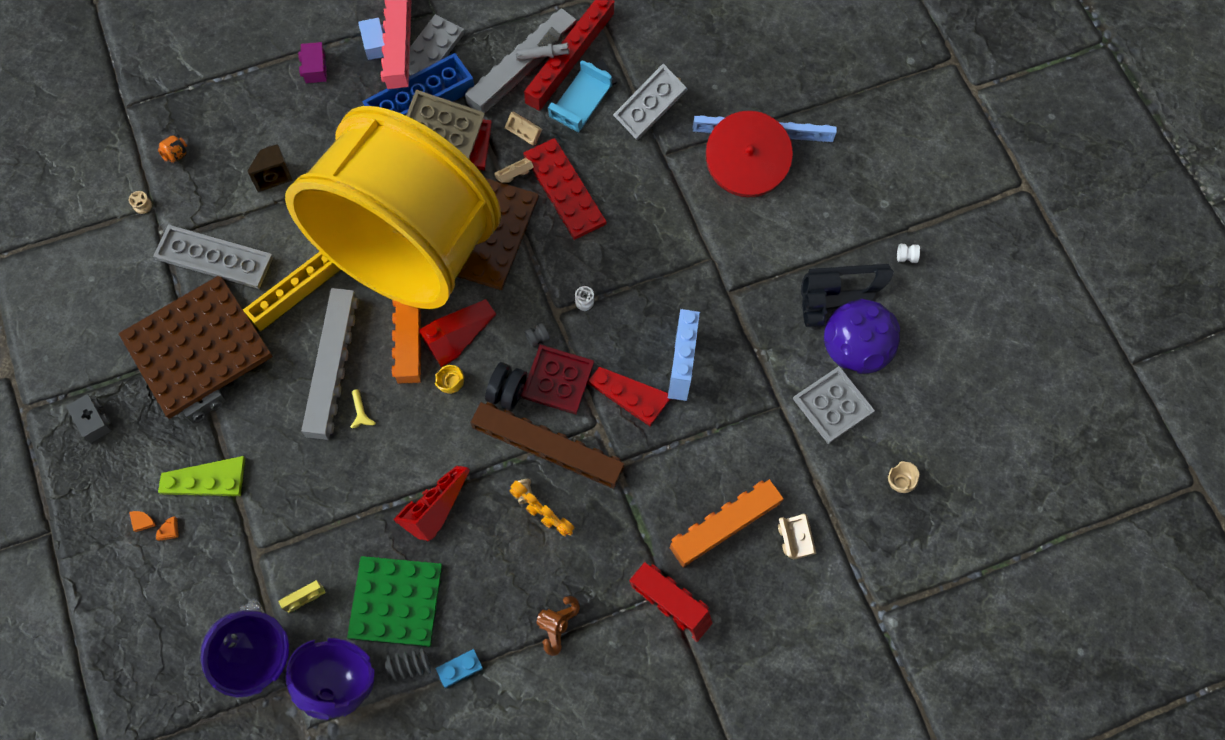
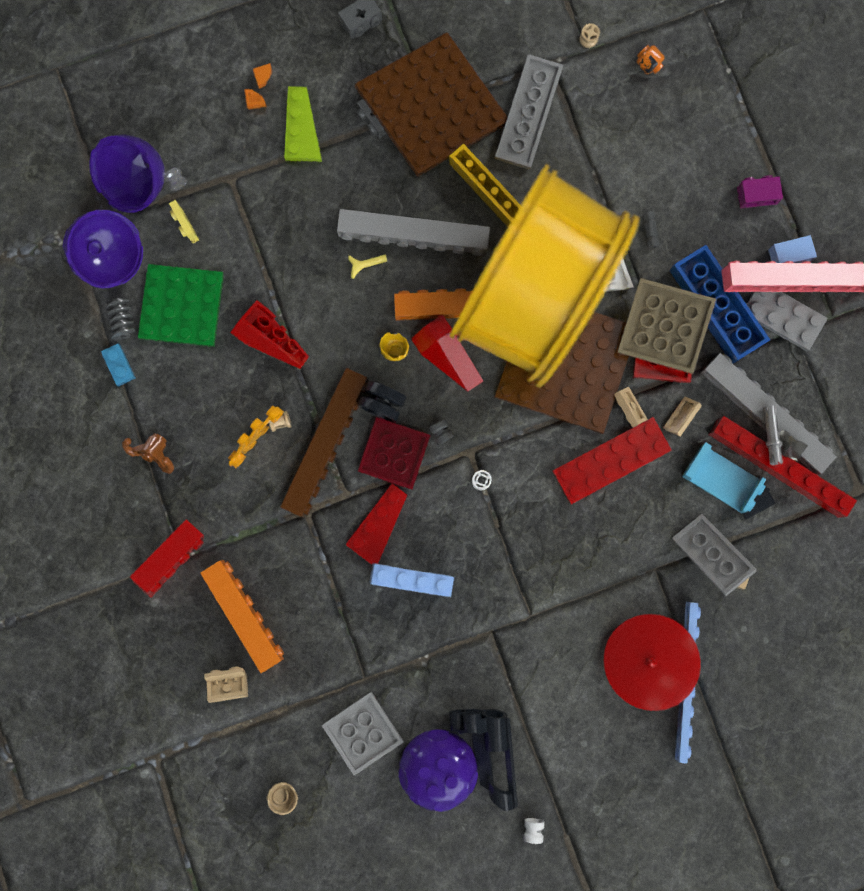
camera: 95 degrees right, 15 degrees up
(269, 169) = (626, 157): dark brown slope -> none

